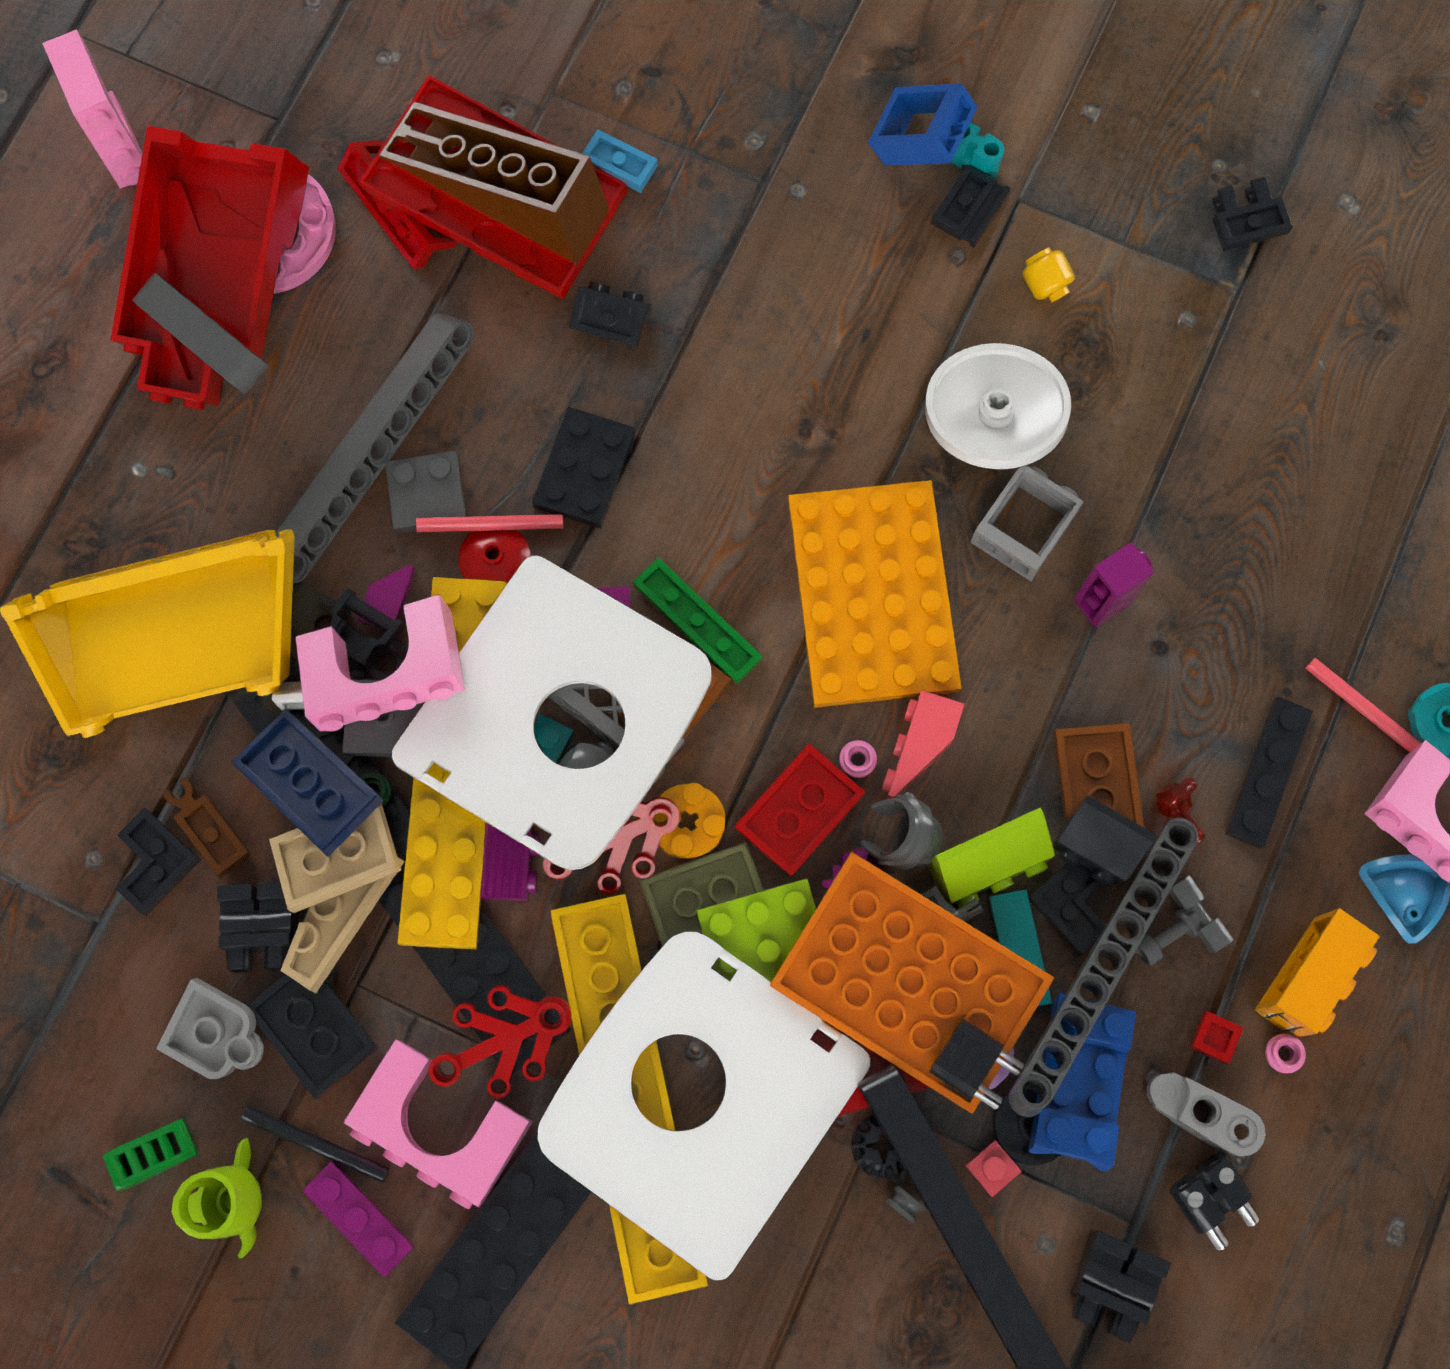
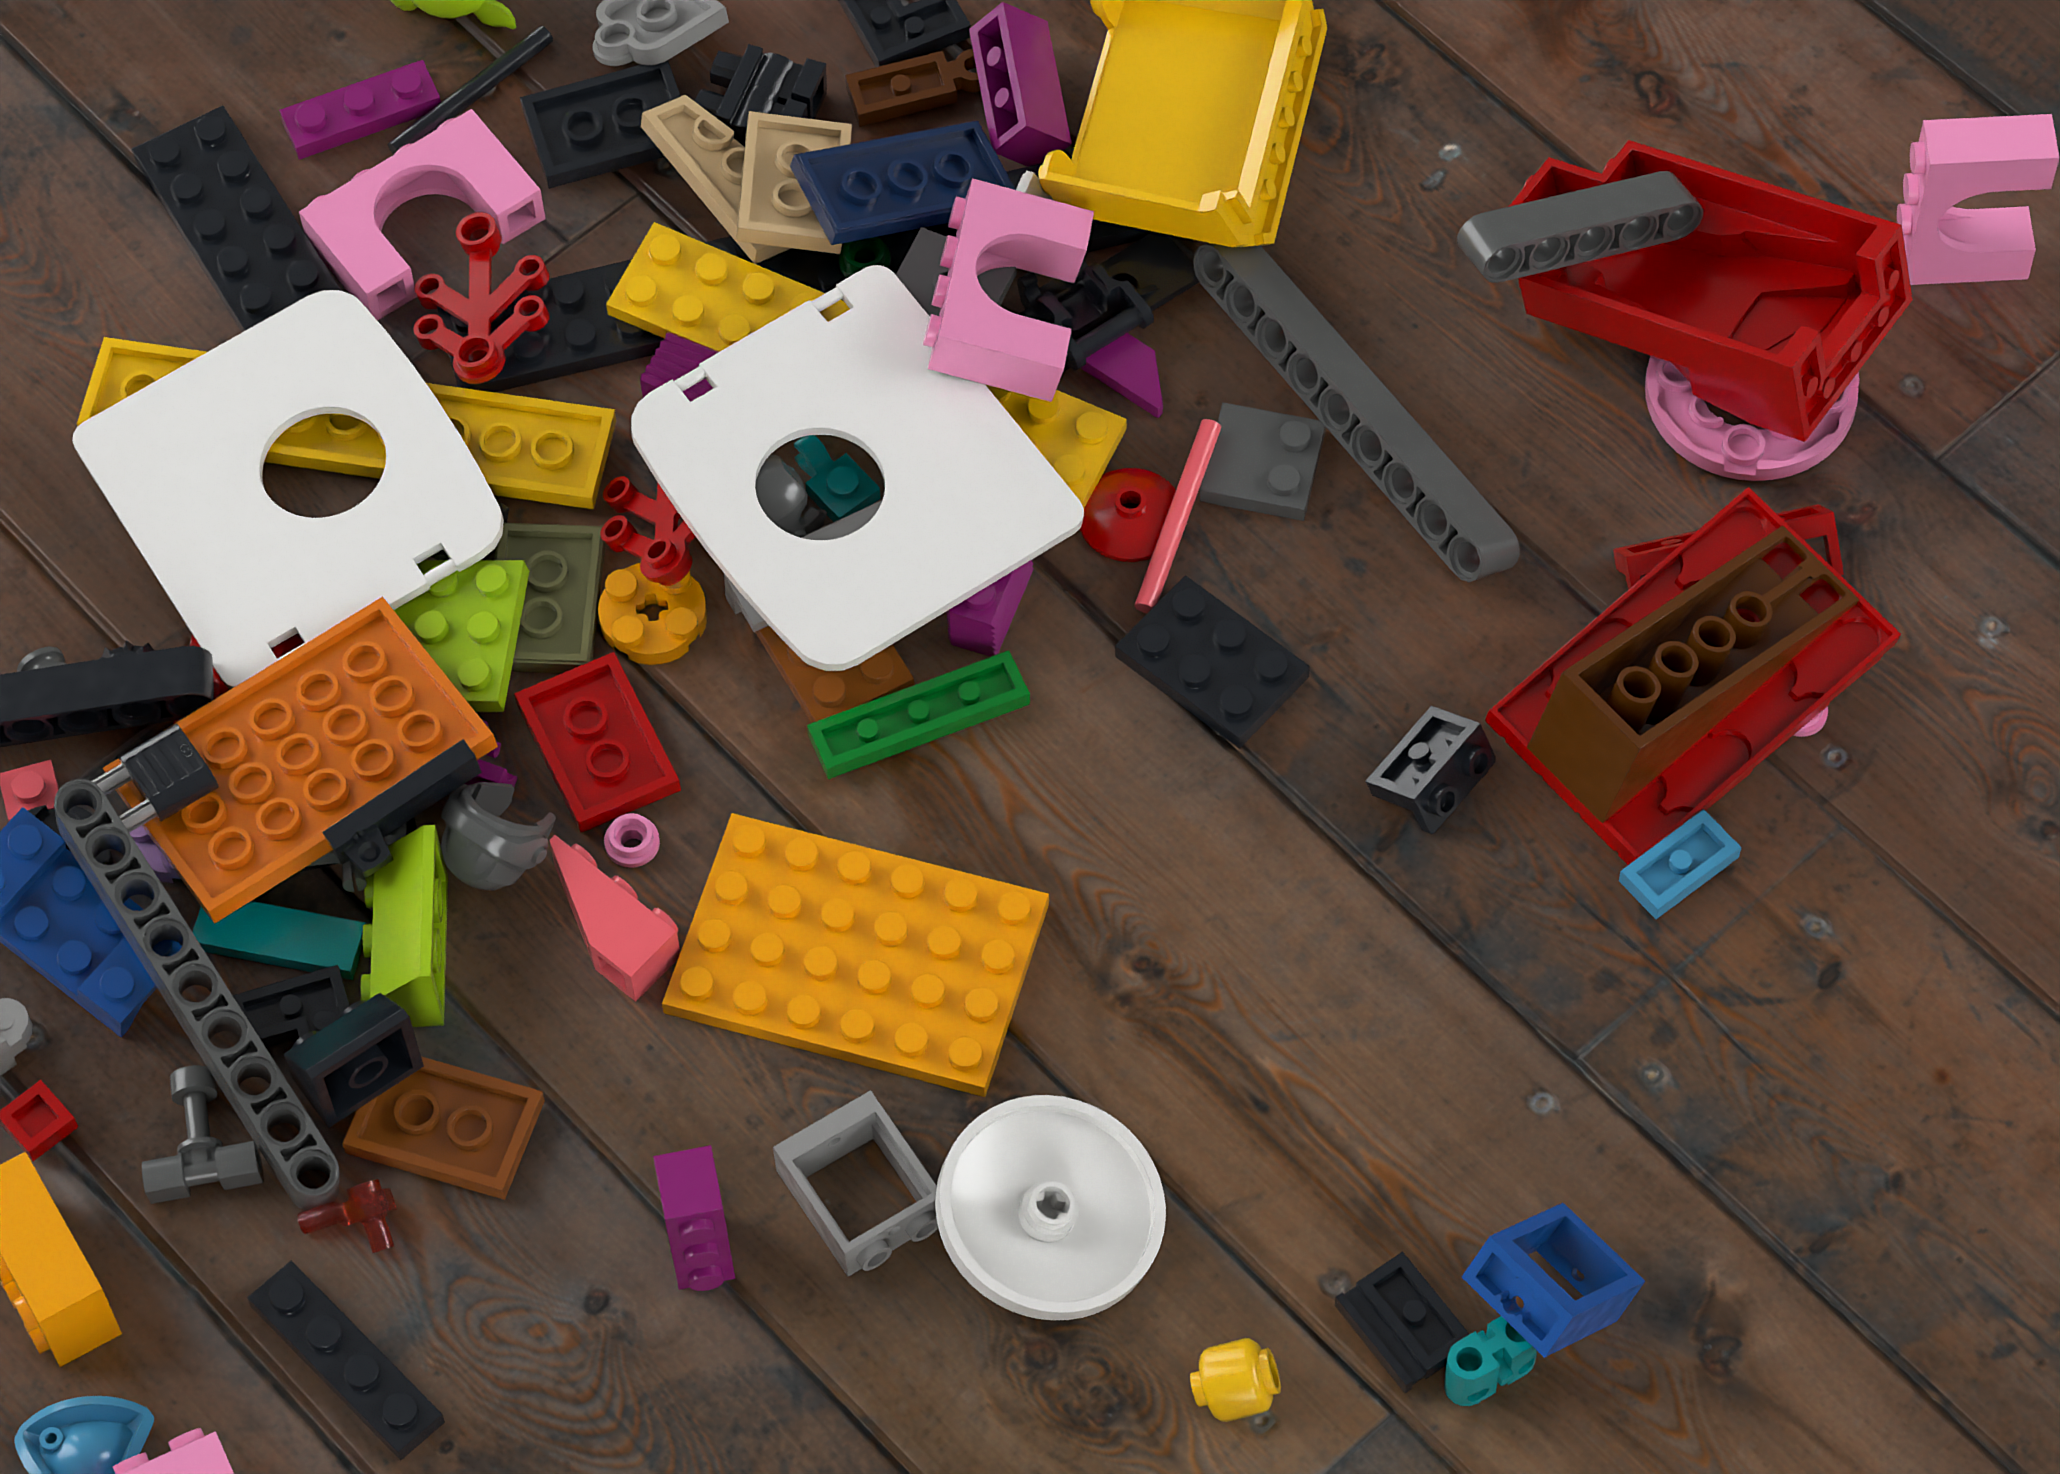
camera: 115 degrees right, 15 degrees down
(188, 749) = (1019, 85): none -> magenta brick
(960, 901) = (362, 832): none -> black hinge

